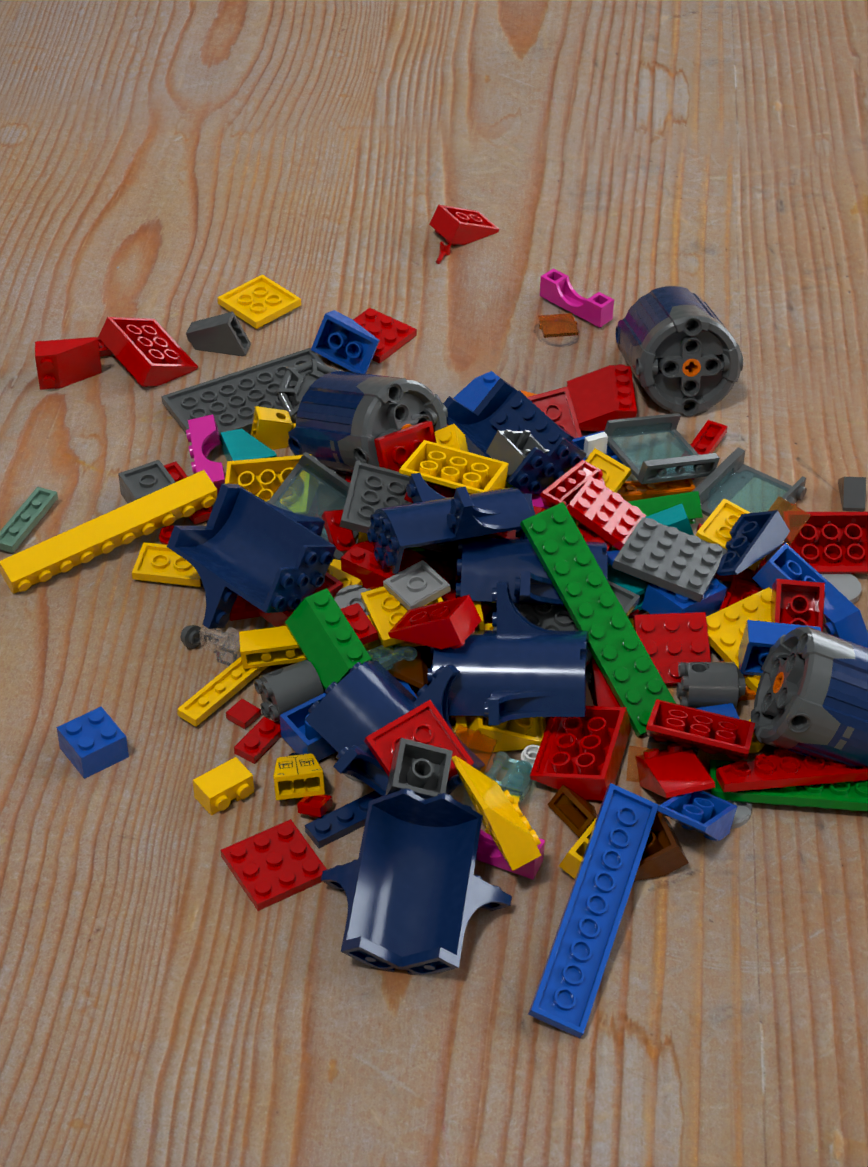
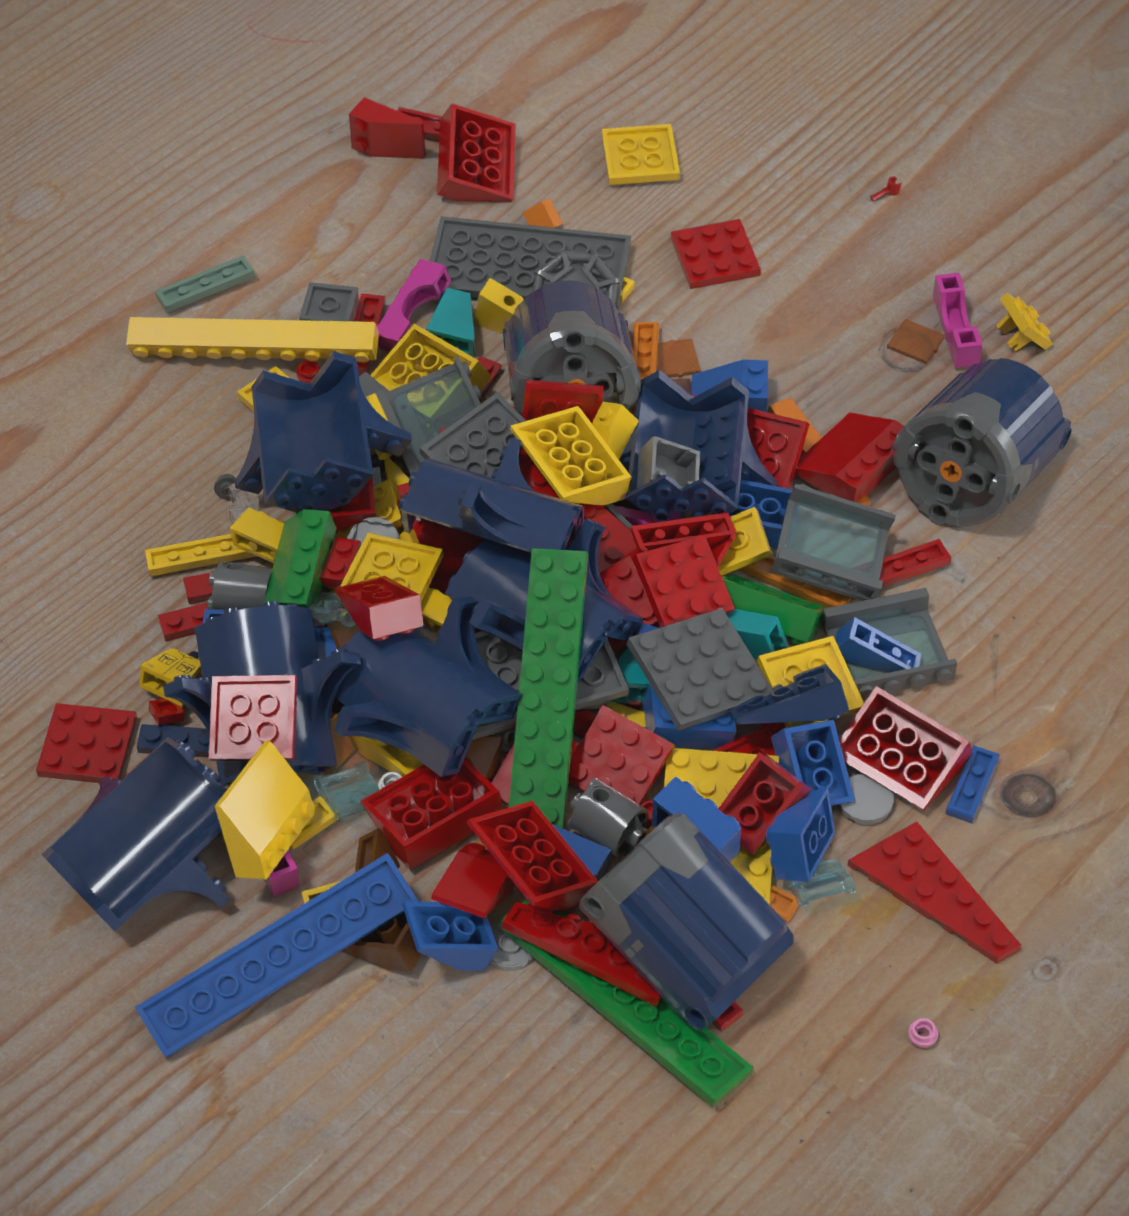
camera: 40 degrees right, 10 degrees up
(92, 742) = (50, 539): blue brick -> none
(219, 335) = (559, 176): dark grey slope -> none
(222, 784) = (112, 645): yellow brick -> none
(233, 362) = (543, 215): none -> orange panel
(345, 342) = (659, 247): blue slope -> none
(417, 585) = (415, 556): light grey tile -> none
(419, 768) = (221, 738): dark grey brick -> none
(461, 225) = (939, 167): red slope -> none
(596, 441) = (765, 502): white tile -> none
(622, 279) = (1026, 320): none -> yellow plate
(746, 496) = (874, 649): none -> blue slope
(793, 517) = (869, 695): clear orange piece -> none
(852, 493) = (1000, 707): dark grey slope -> none

